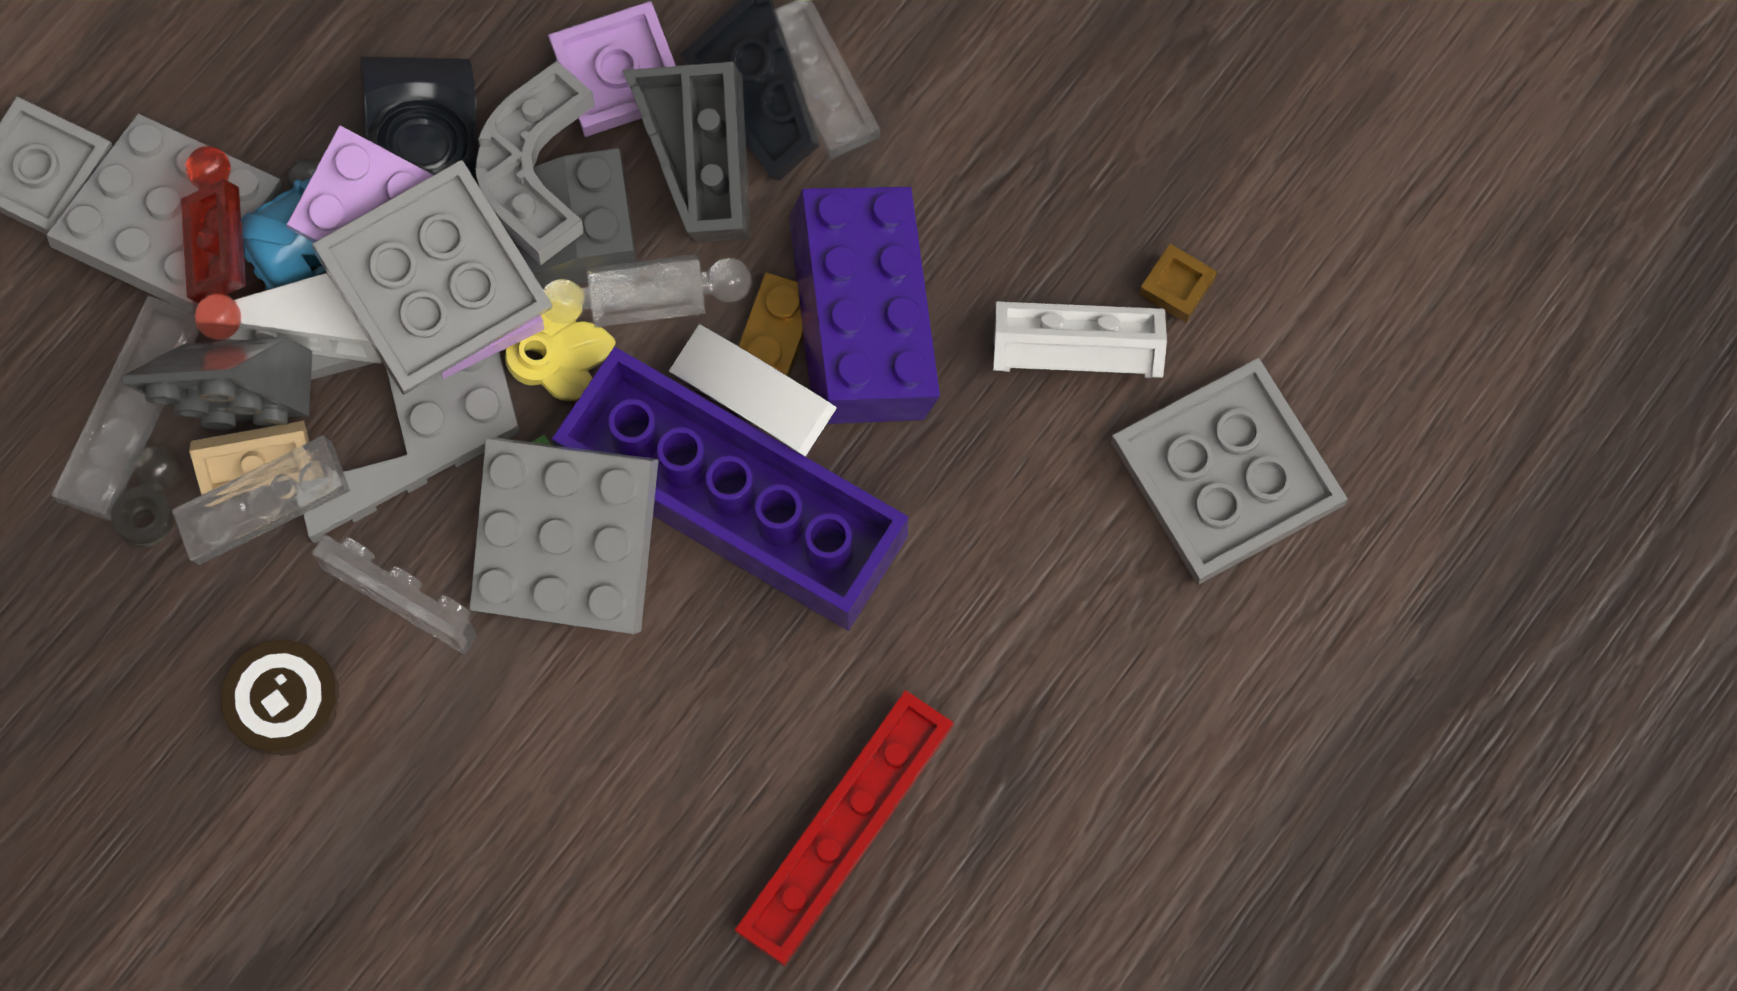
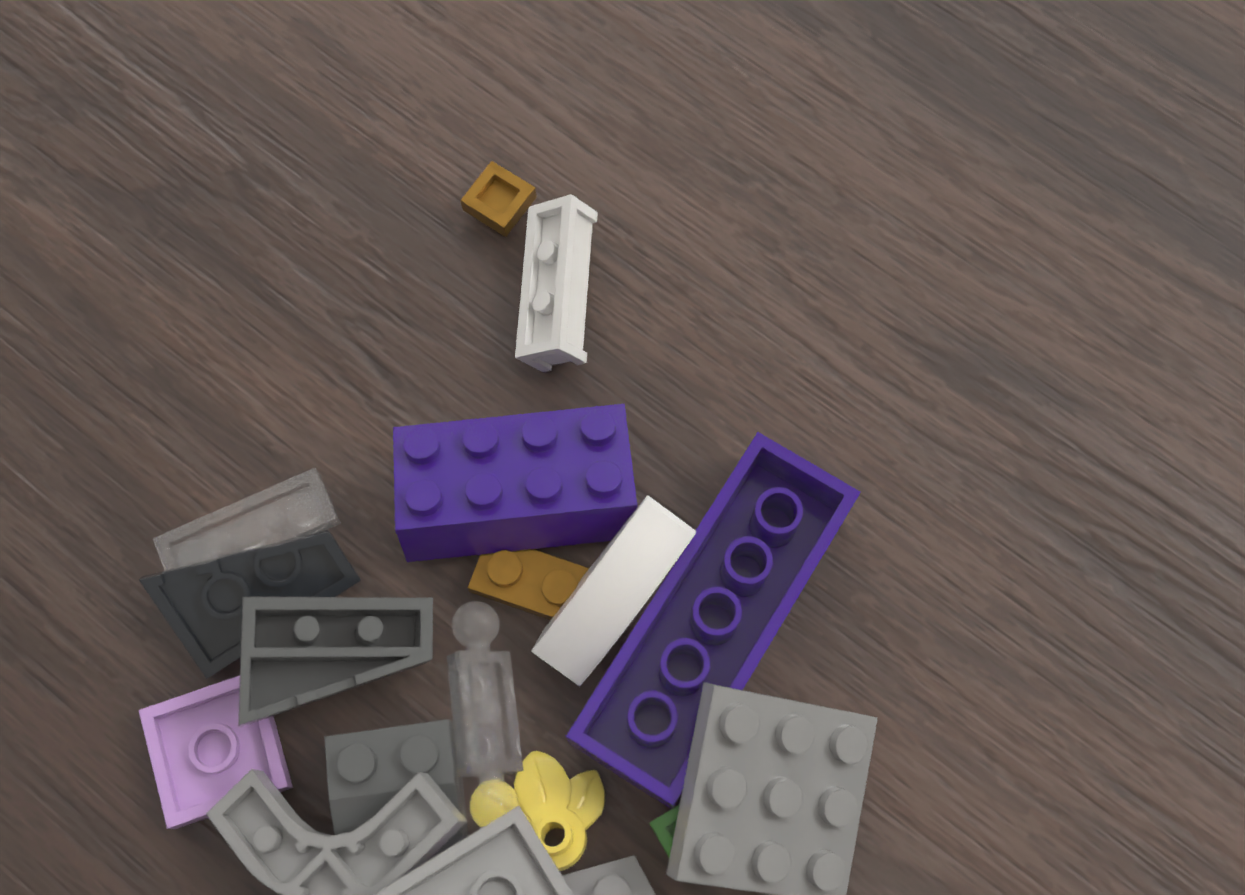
camera: 90 degrees left, 0 degrees up
(844, 828) = (1055, 514): red plate -> none
(1228, 471) = (687, 165): light grey plate -> none

